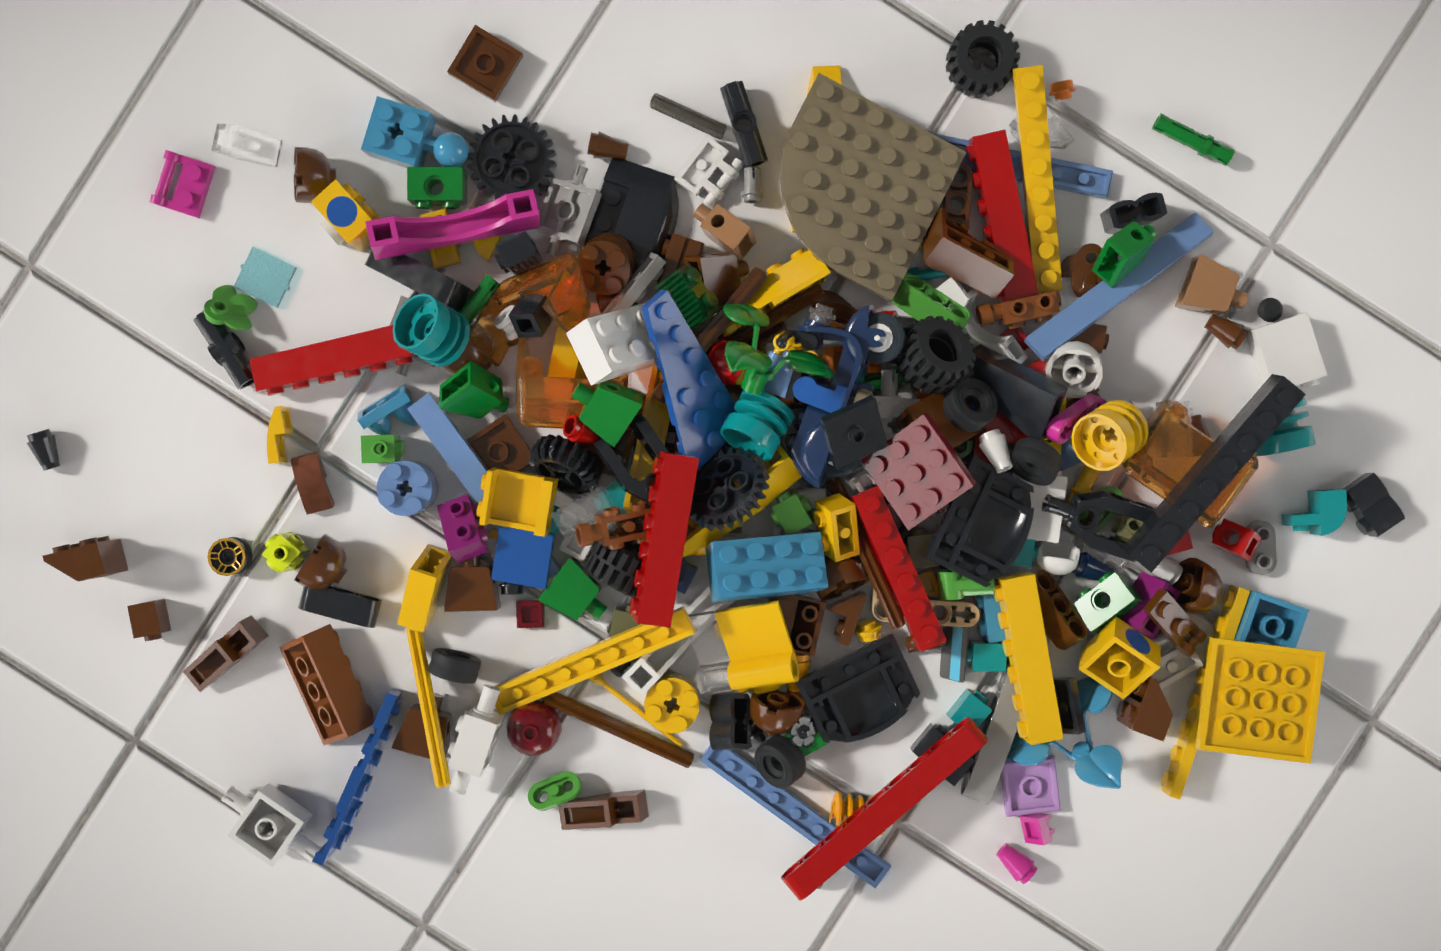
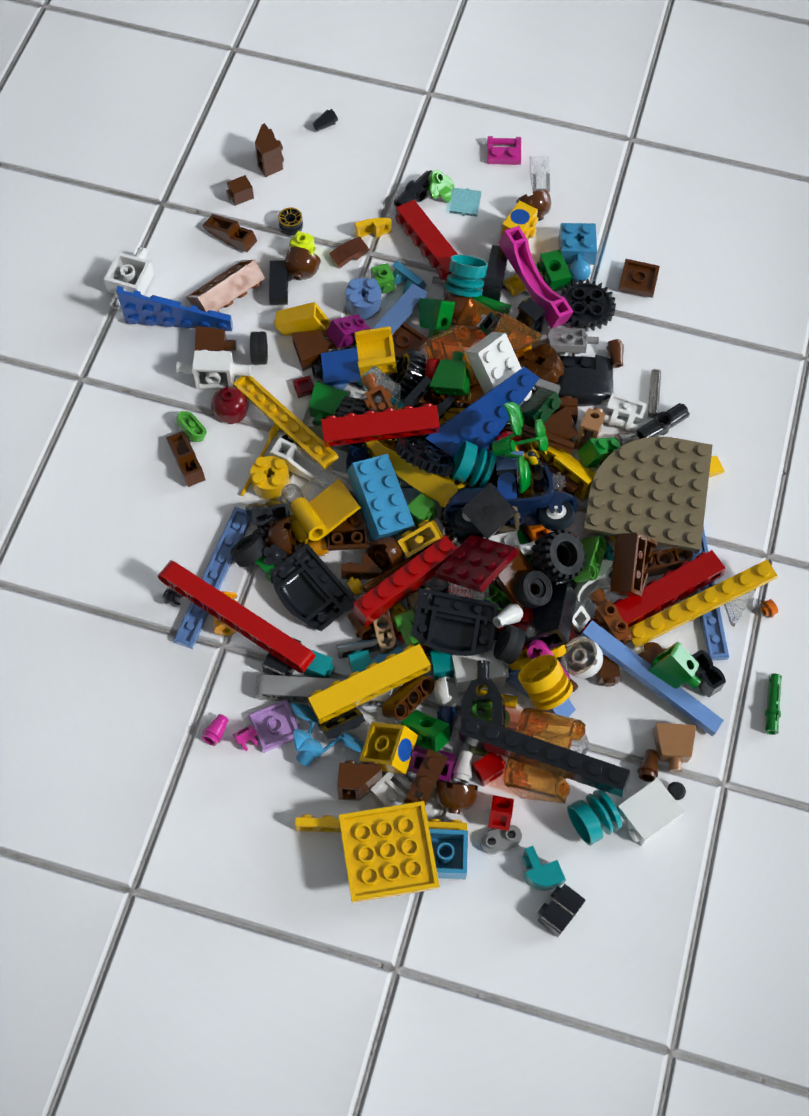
camera: 70 degrees right, 25 degrees down
(428, 709) = (225, 338): yellow axle -> none
(619, 729) = (242, 455): reddish brown axle -> none
(772, 232) = (597, 450): none -> green brick
(994, 40) = (769, 536): black tyre -> none

